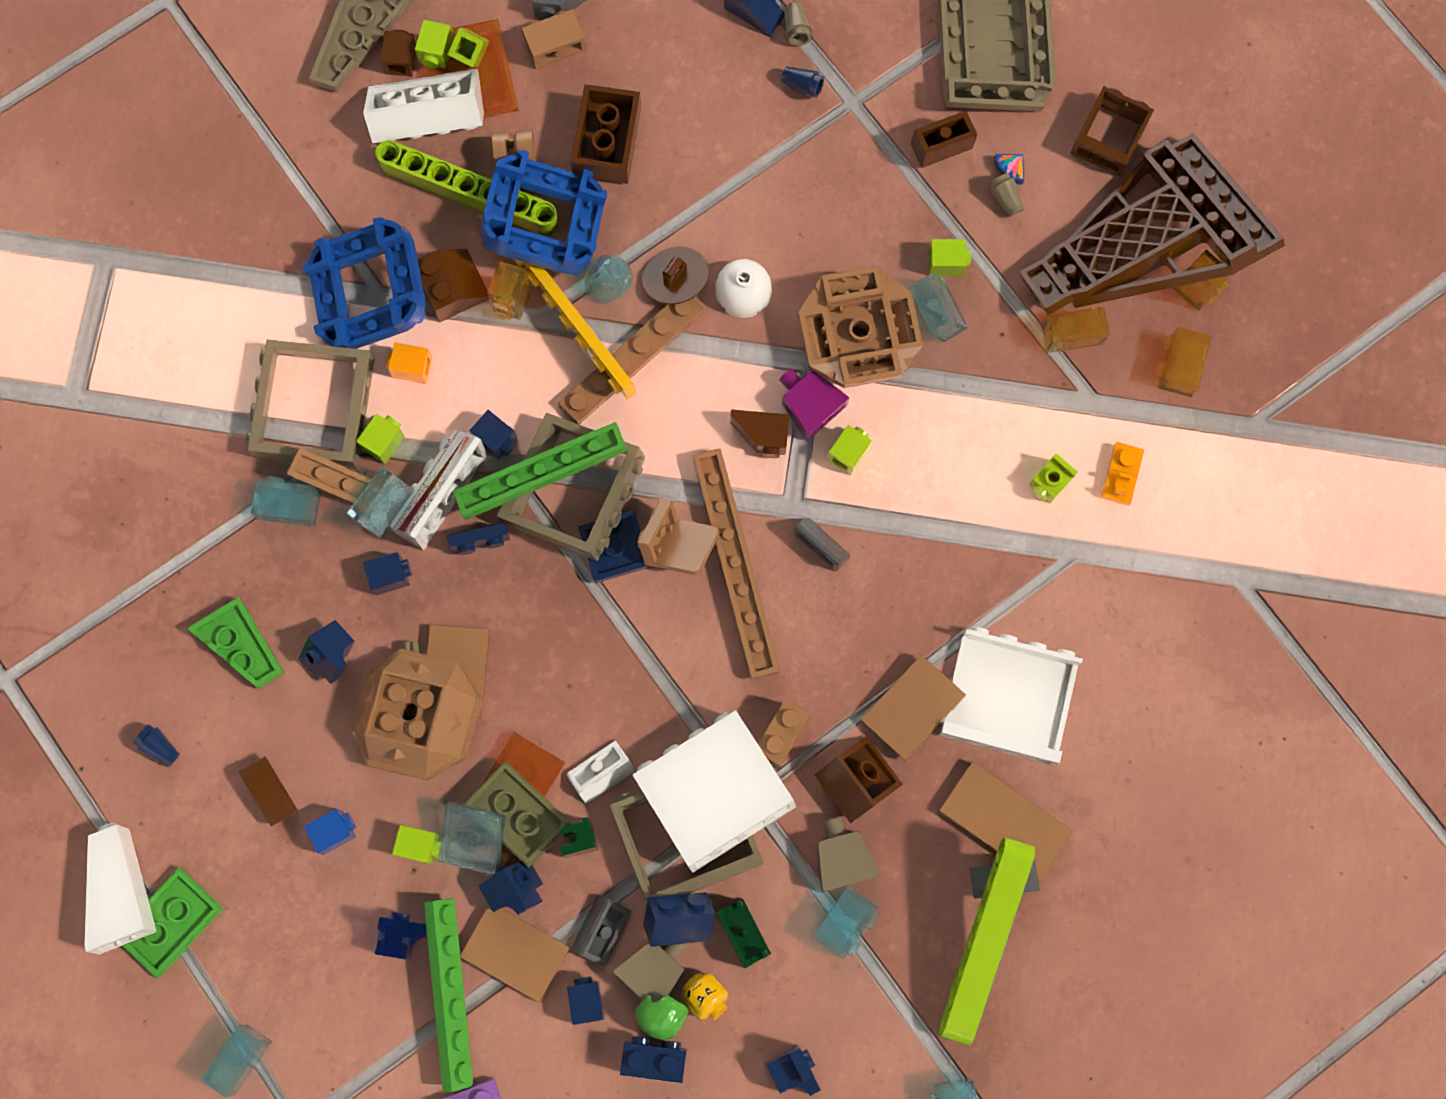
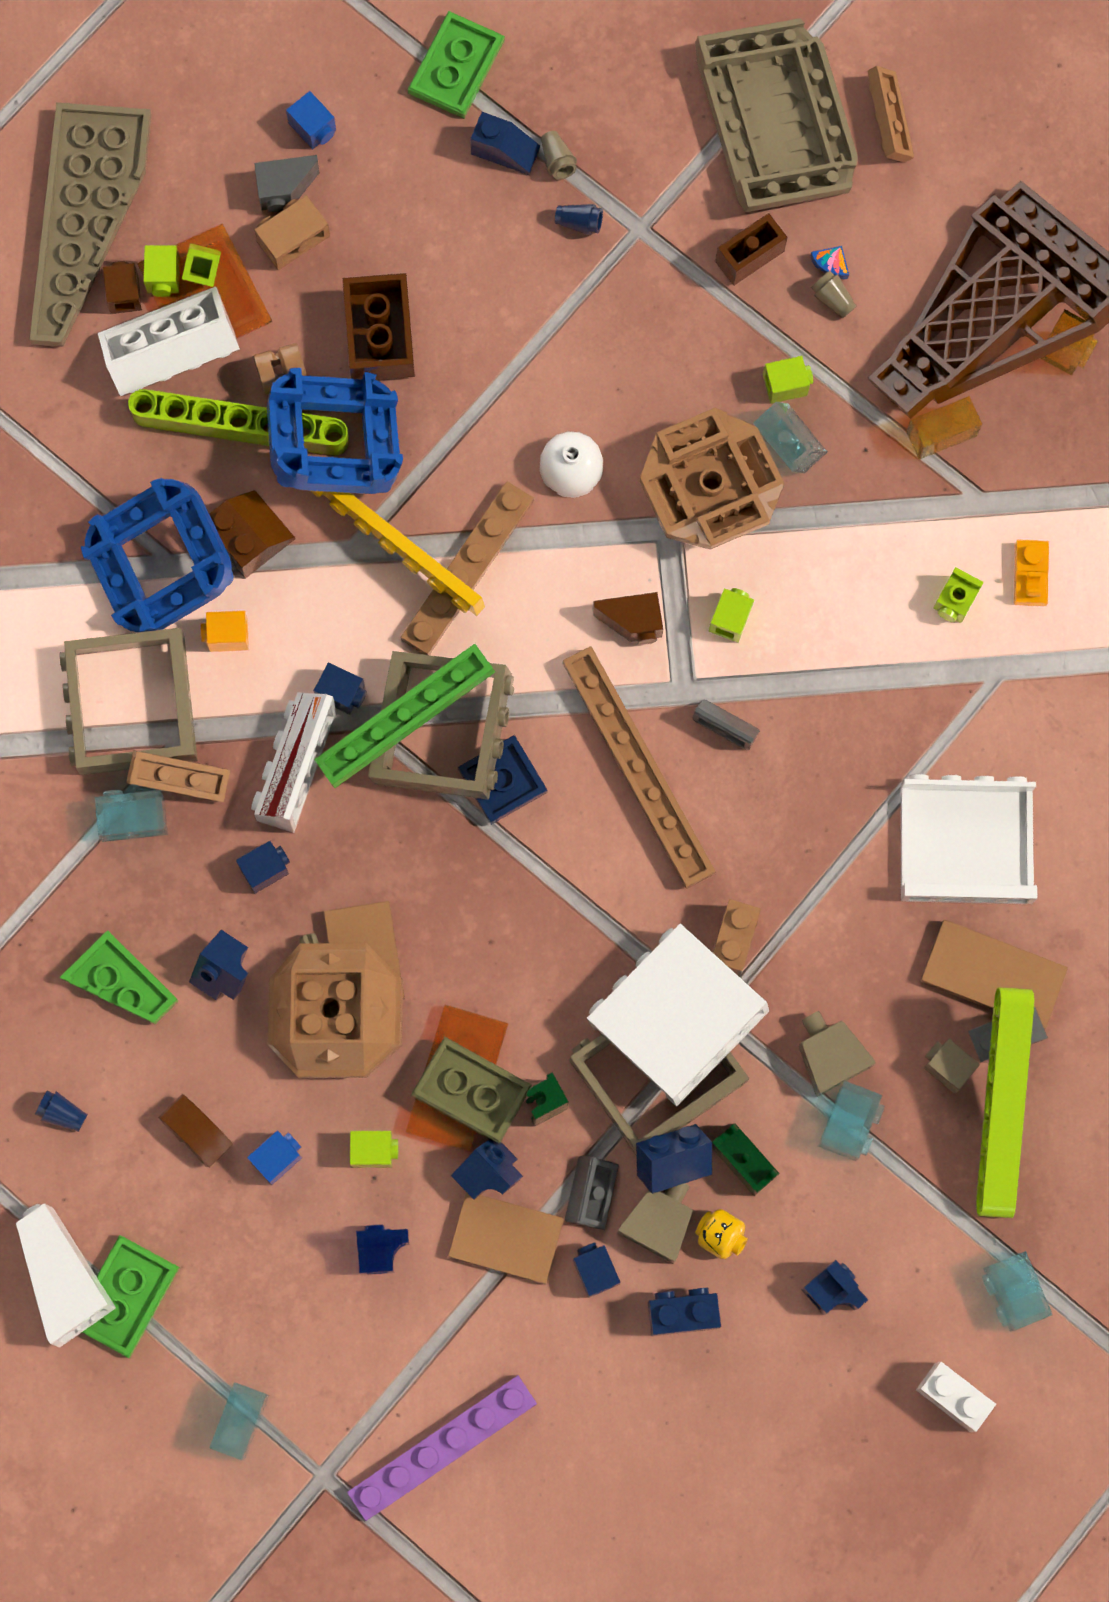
camera: 15 degrees left, 0 degrees up
(380, 502) = (237, 790): clear light blue brick -> none
(381, 437) = (217, 720): lime brick -> none
(448, 995) = (448, 1297): bright green plate -> none
(472, 838) = (431, 1127): clear light blue tile -> none
(490, 536) = (365, 800): dark blue plate -> none
(509, 291) = (317, 527): clear yellow brick -> none
(600, 772) = (549, 1025): white slope -> none
(608, 278) = (420, 488): clear light blue hair -> none
(661, 1018) = (682, 1266): bright green hair -> none
(675, 275) = (493, 467): reddish brown shield -> none
(676, 542) = (570, 759): medium nougat bracket -> none
(811, 401) = (677, 572): magenta torso -> none
(858, 779) = (827, 967): reddish brown slope -> none
(913, 707) = (867, 877): medium nougat tile -> none
(947, 893) = (950, 1065): none -> dark tan brick
(1092, 51) = (890, 114): none -> medium nougat plate
(1103, 154) = (927, 226): reddish brown window -> none
(1183, 361) = (1068, 435): clear yellow brick -> none

